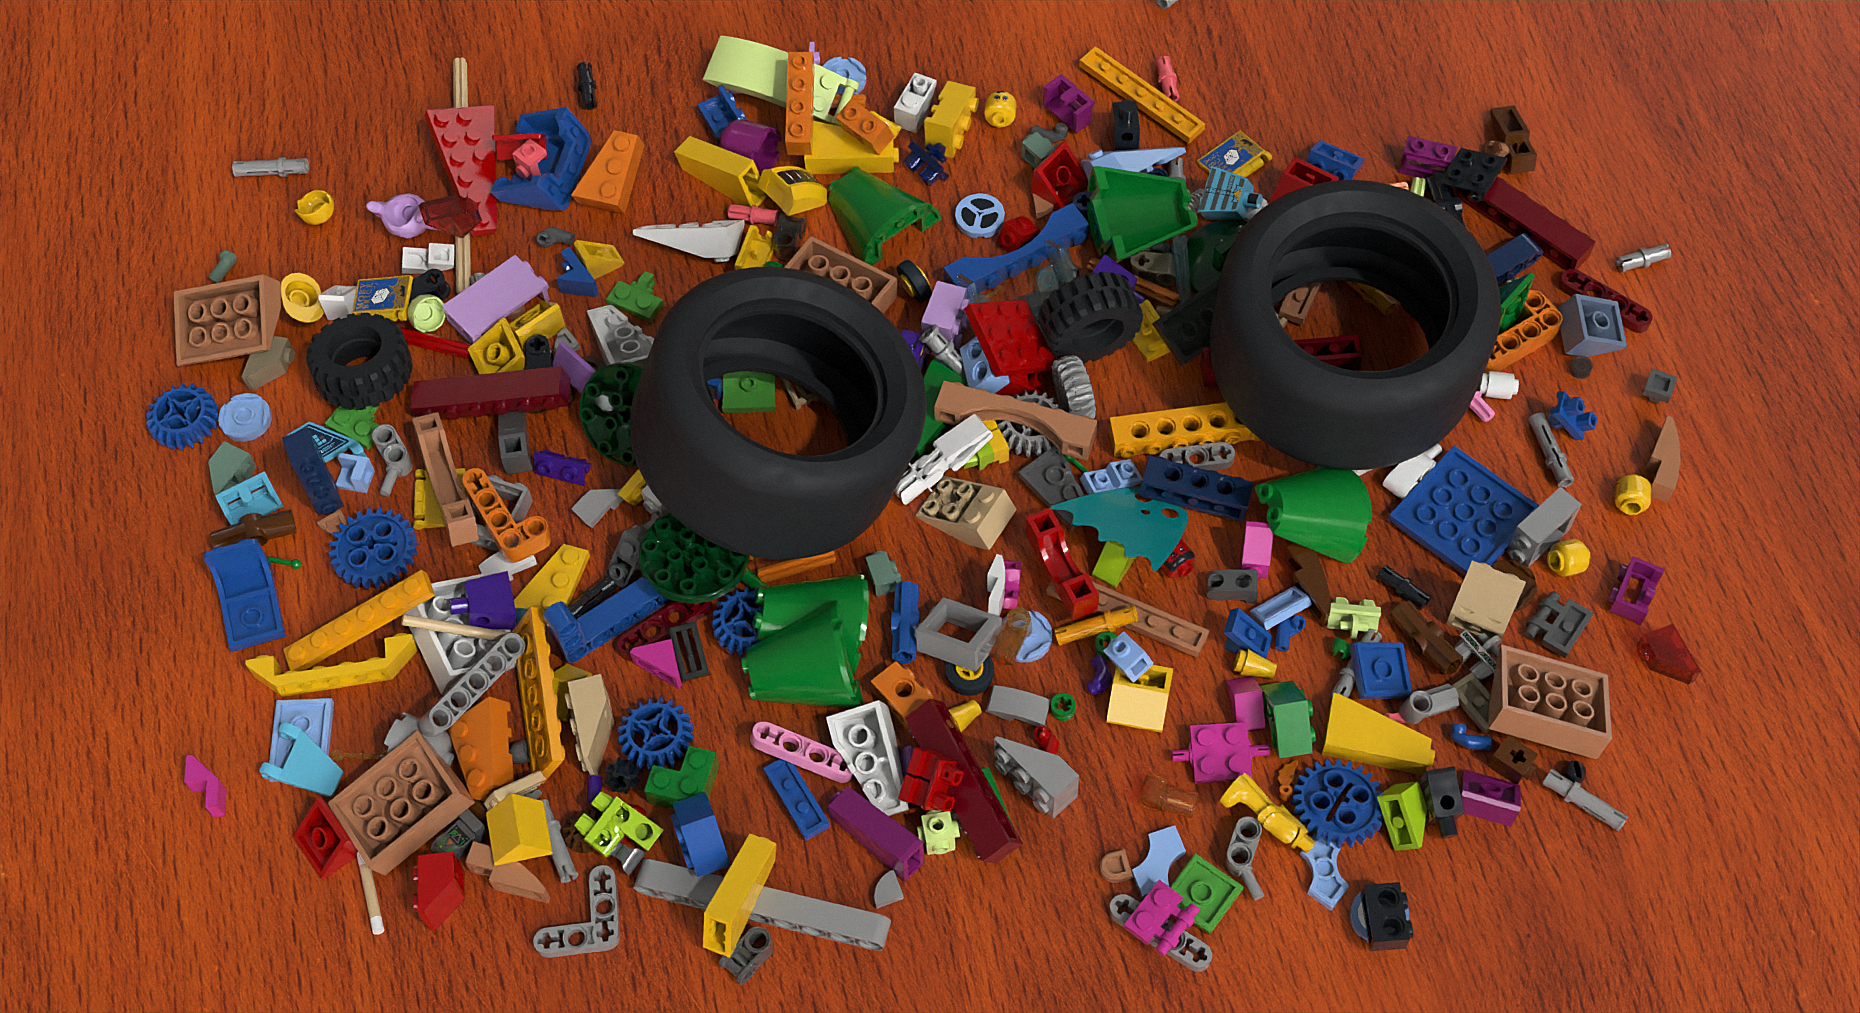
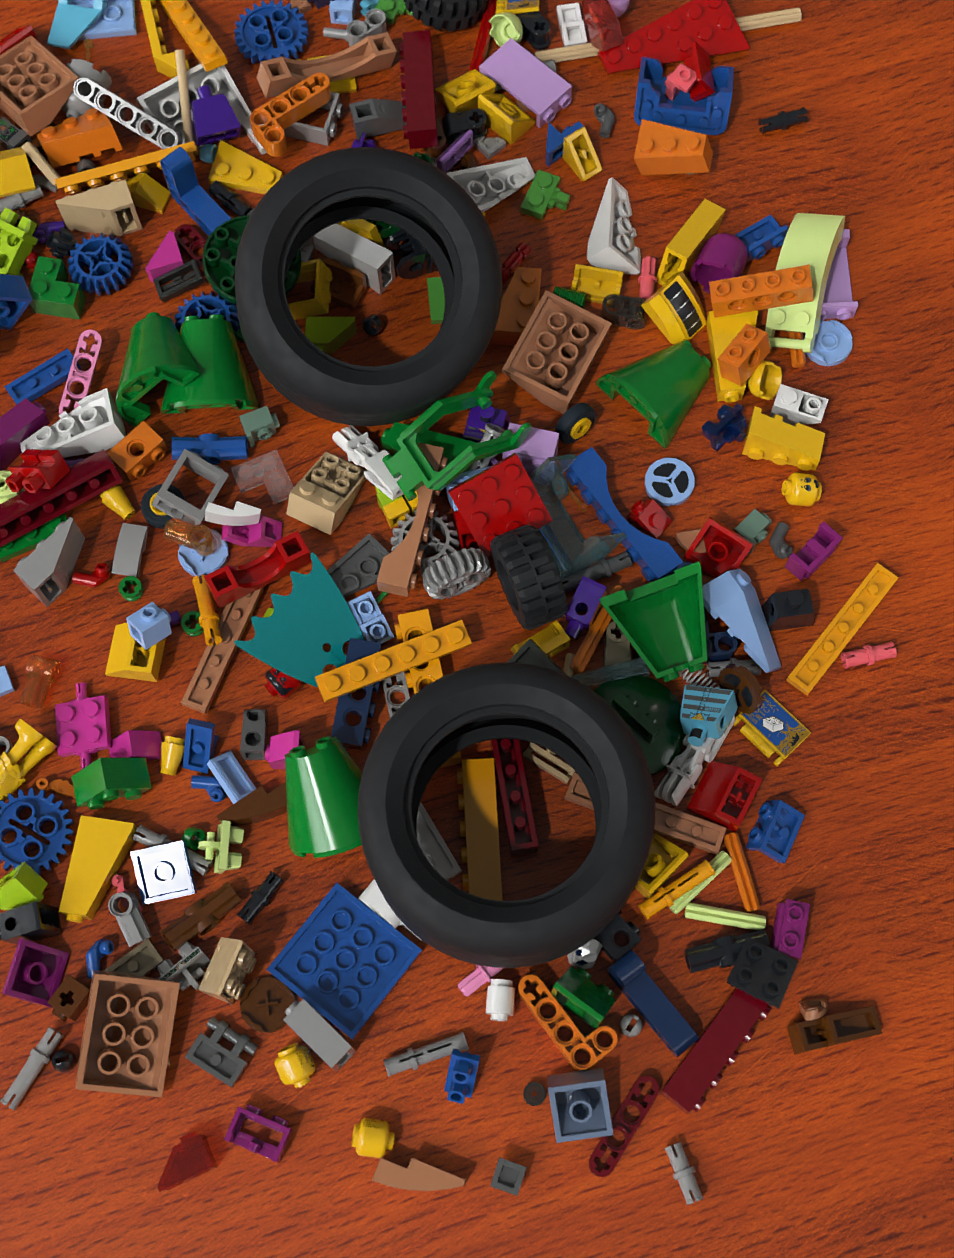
camera: 85 degrees right, 10 degrees up
(936, 567) = (264, 470): none -> clear plate
(972, 398) = (414, 464): none -> green piece
(1169, 445) = (393, 661): none -> light orange plate
(1199, 166) = (744, 685): none -> reddish brown tile

